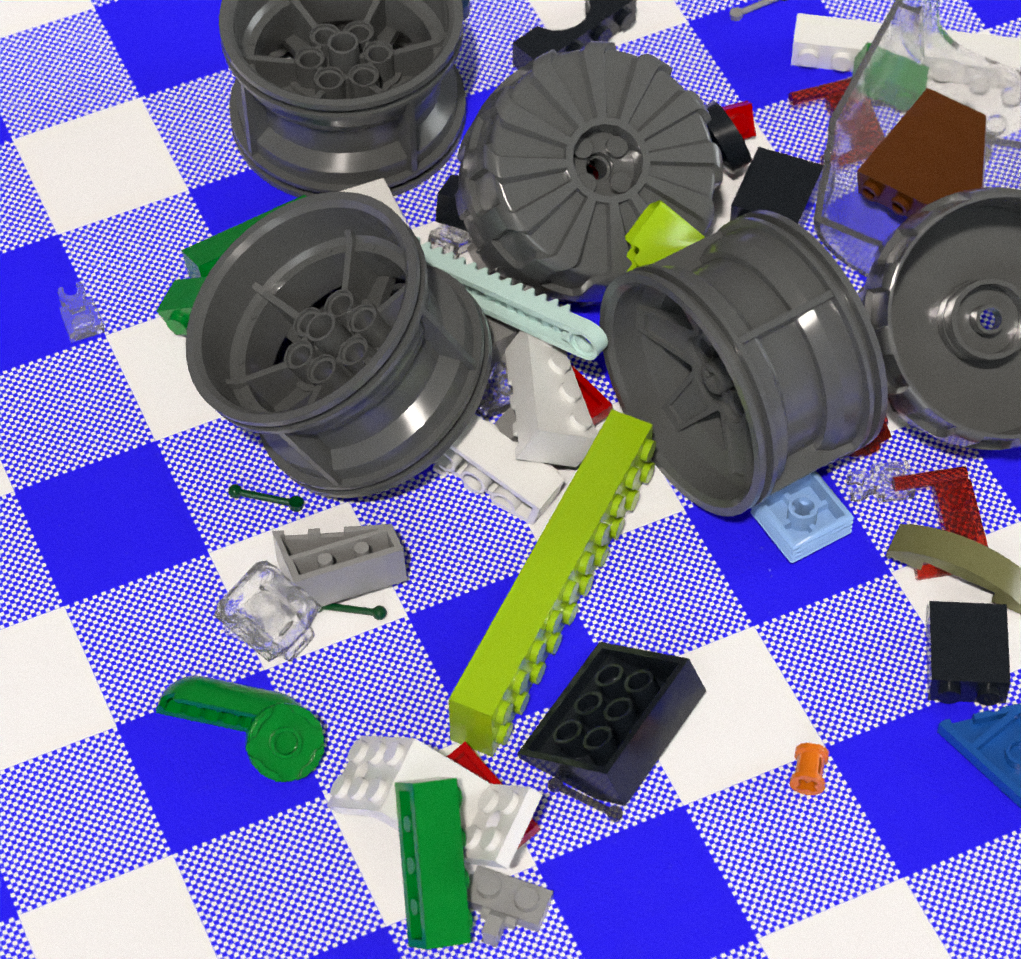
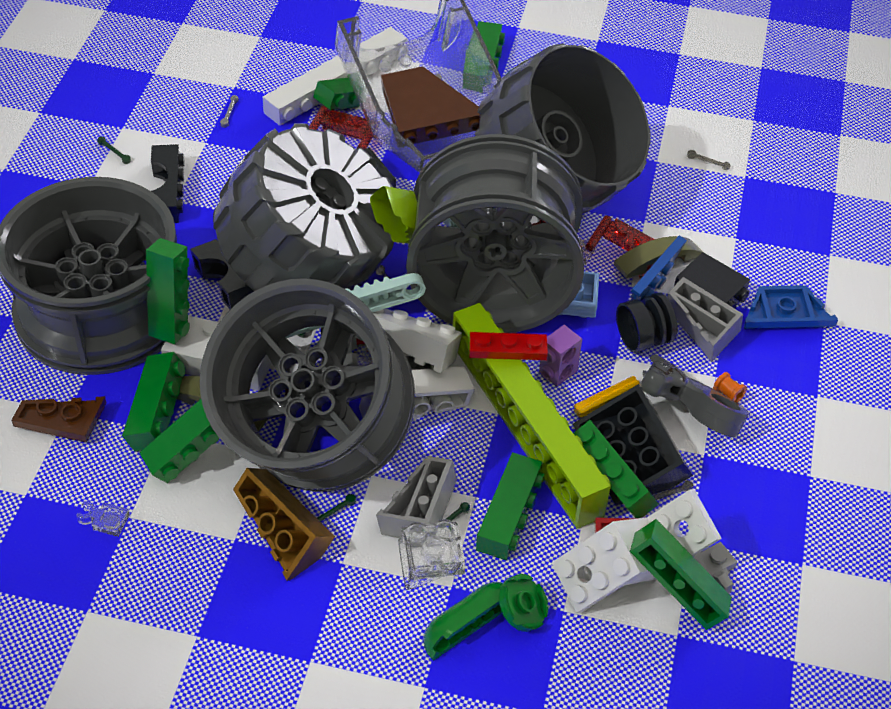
camera: 55 degrees left, 5 degrees down
(169, 189) = (65, 419): none -> reddish brown wing
(202, 471) = (283, 521): none -> pearl gold wedge
(355, 132) = (168, 292): none -> green brick
(408, 650) = (509, 506): none -> green brick
(545, 715) = (621, 477): none -> green brick
(605, 491) = (508, 346): none -> red plate
(671, 559) = (562, 356): none -> medium lavender brick
(701, 658) = (599, 399): none -> yellow axle
(749, 734) = (702, 401): none -> dark grey animal
(822, 616) = (646, 322): none -> black wheel
(893, 675) = (704, 317): none -> light grey wedge
(903, 576) = (655, 276): none -> blue wing

